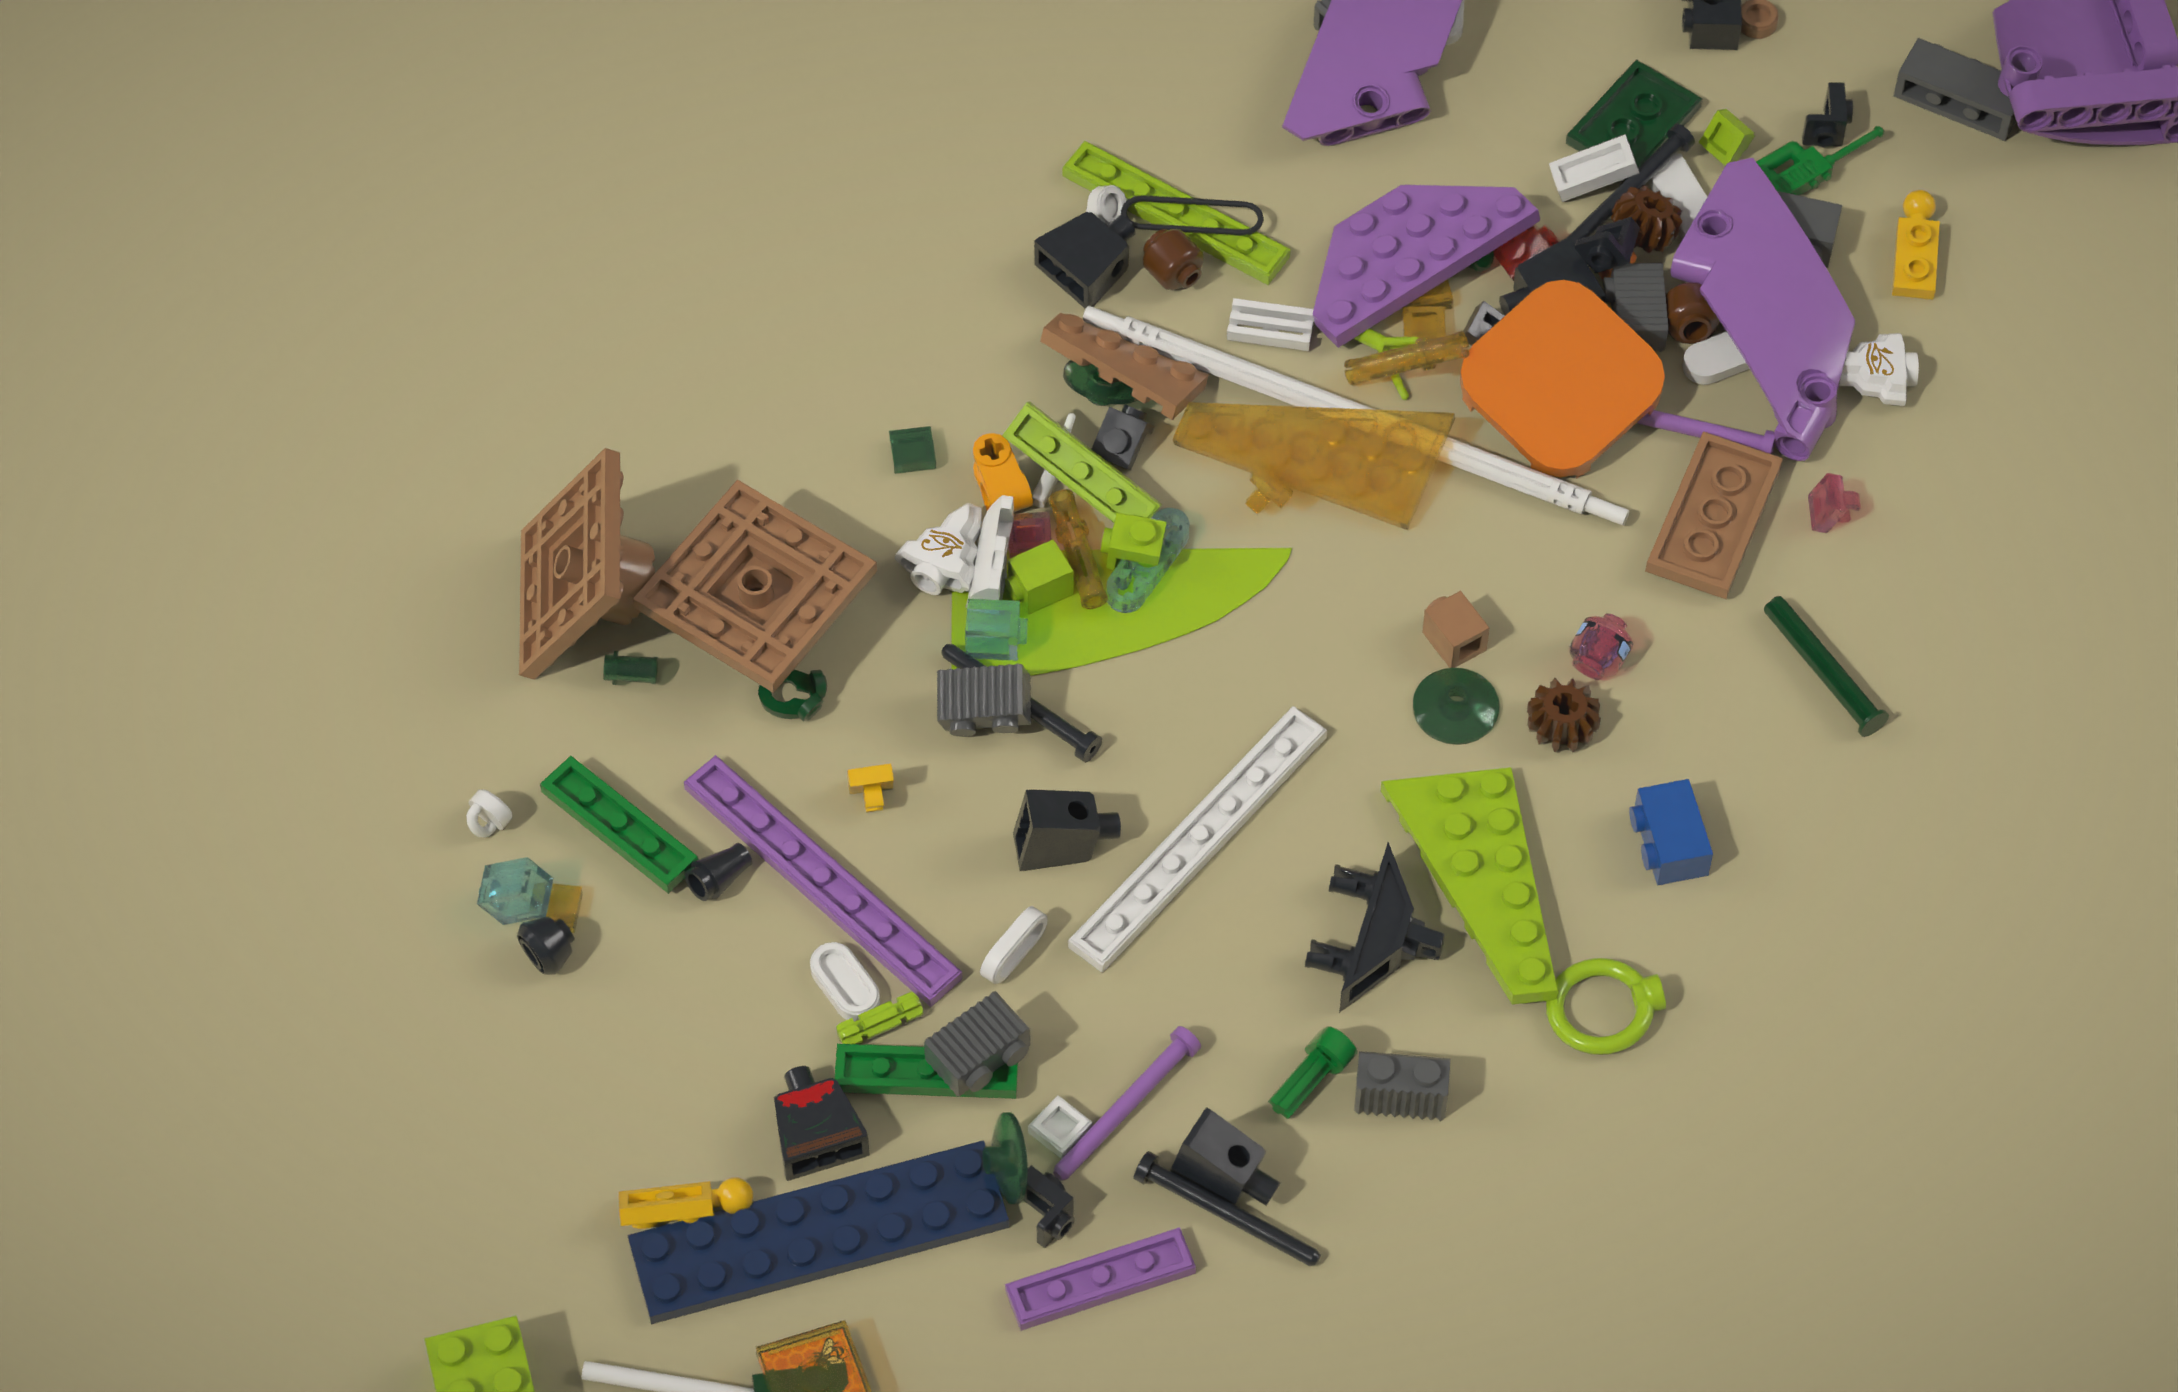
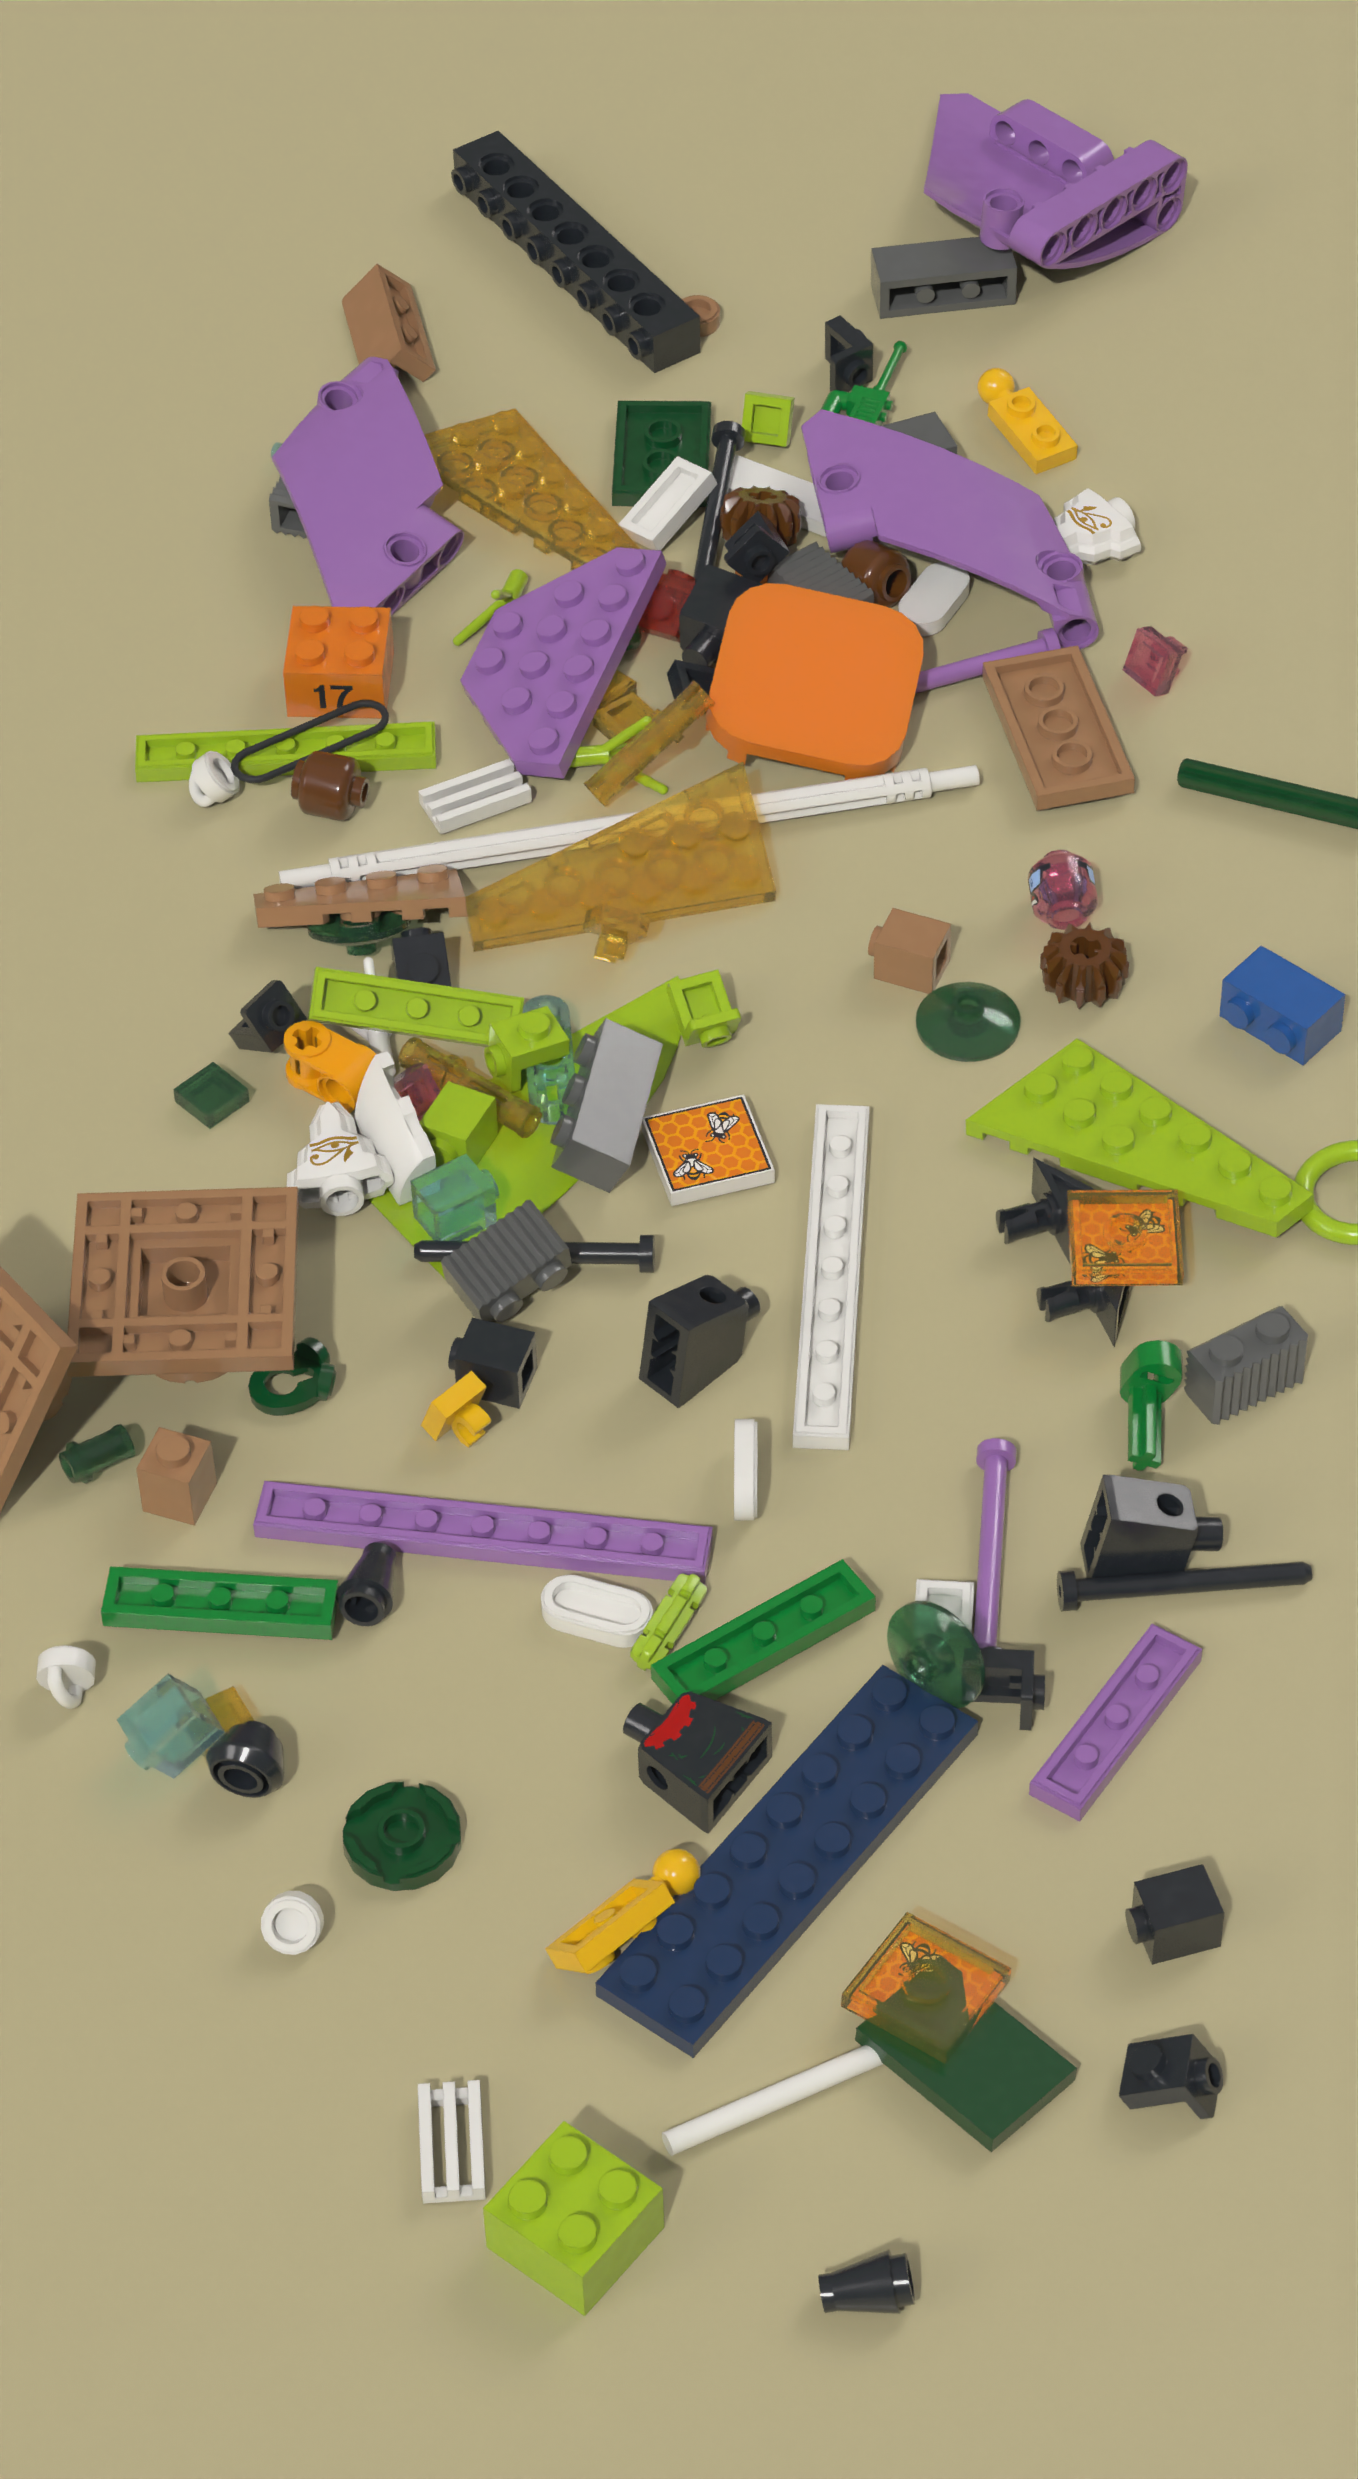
camera: 35 degrees left, 10 degrees down
(449, 1268) = (449, 2098): none -> white tile
(484, 1072) = (292, 1922): none -> white tile
(600, 1057) = (401, 1836): none -> dark green tile
(660, 717) = (176, 1476): none -> medium nougat brick
(922, 764) = (499, 1357): none -> black brick
(977, 1044) = (806, 1571): dark grey brick -> none
(982, 417) = (267, 1019): none -> black bracket
(1085, 255) = (233, 832): black torso -> none
(1145, 619) = (605, 1104): none -> brick
(1195, 694) = (708, 1150): none -> tile
(1260, 162) = (337, 660): none -> orange brick
(1277, 587) = (703, 1009): none -> lime bracket
(1391, 941) = (1124, 1238): none -> clear yellow tile
(1424, 177) = (511, 590): none -> lime plant
(1508, 94) = (524, 486): none -> clear yellow wing

